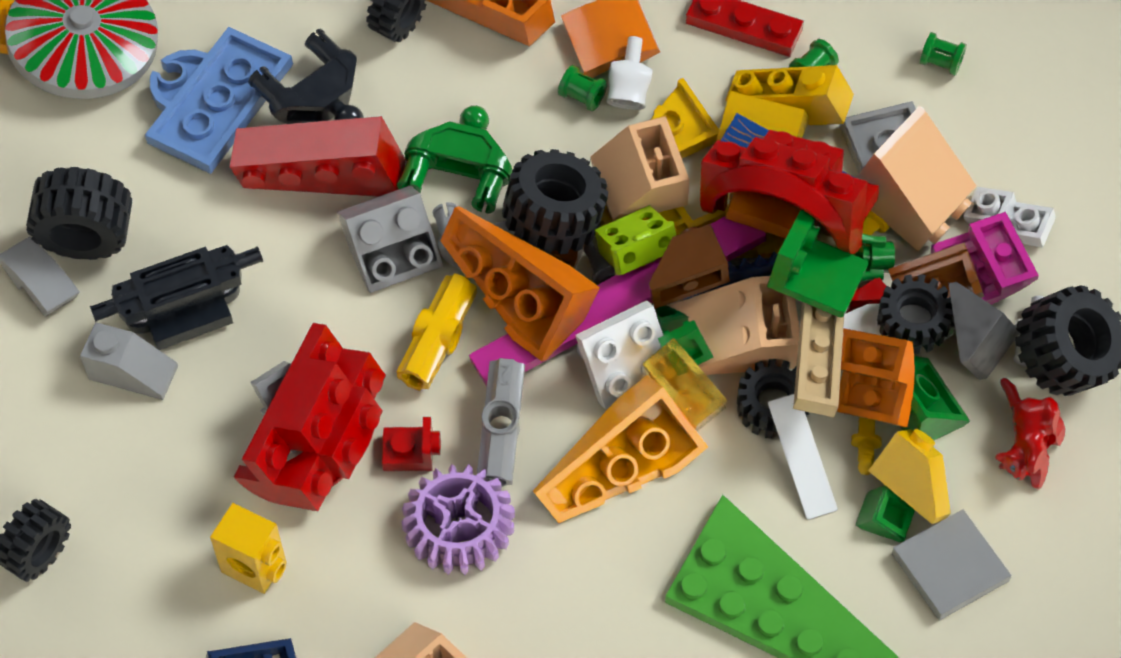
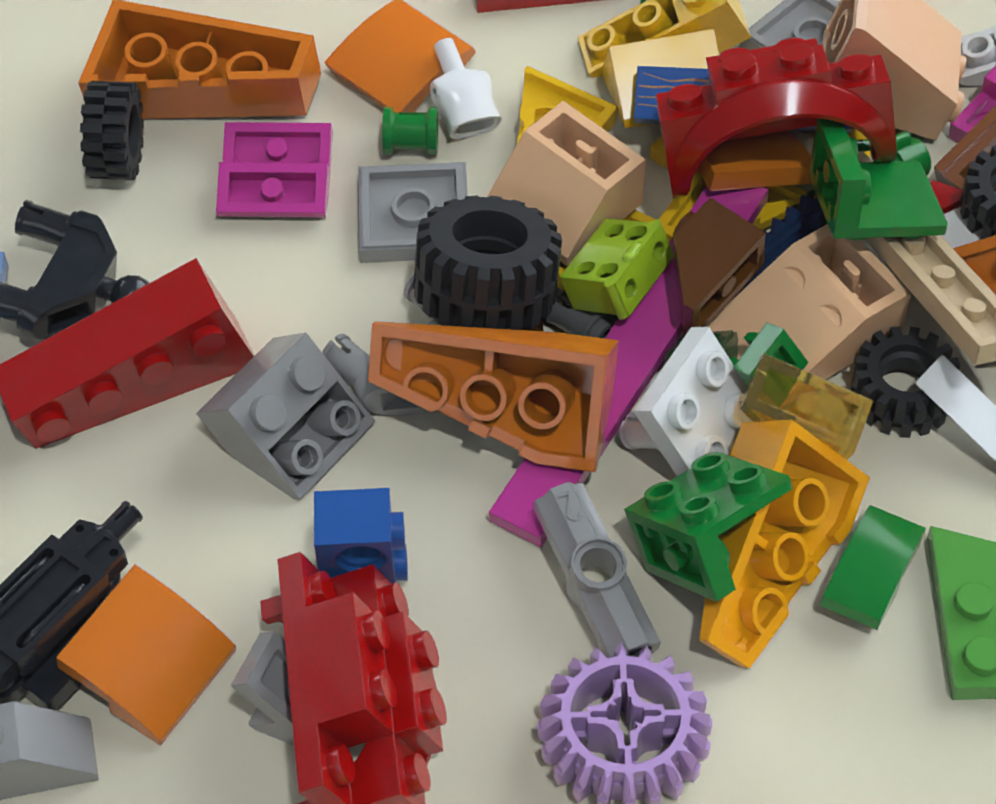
camera: 30 degrees left, 5 degrees down
(225, 341) = (146, 654): none -> orange slope
(375, 330) = (358, 531): none -> blue brick
(410, 447) = (493, 667): red bracket -> none
(436, 332) = (429, 503): yellow piece -> none
(460, 150) = (310, 268): green connector -> none
(486, 75) = (275, 169): none -> dark pink slope
(553, 127) = (395, 202): none -> light grey tile
(578, 411) = (682, 518): none -> green bracket
(669, 499) = (872, 567): none -> green slope

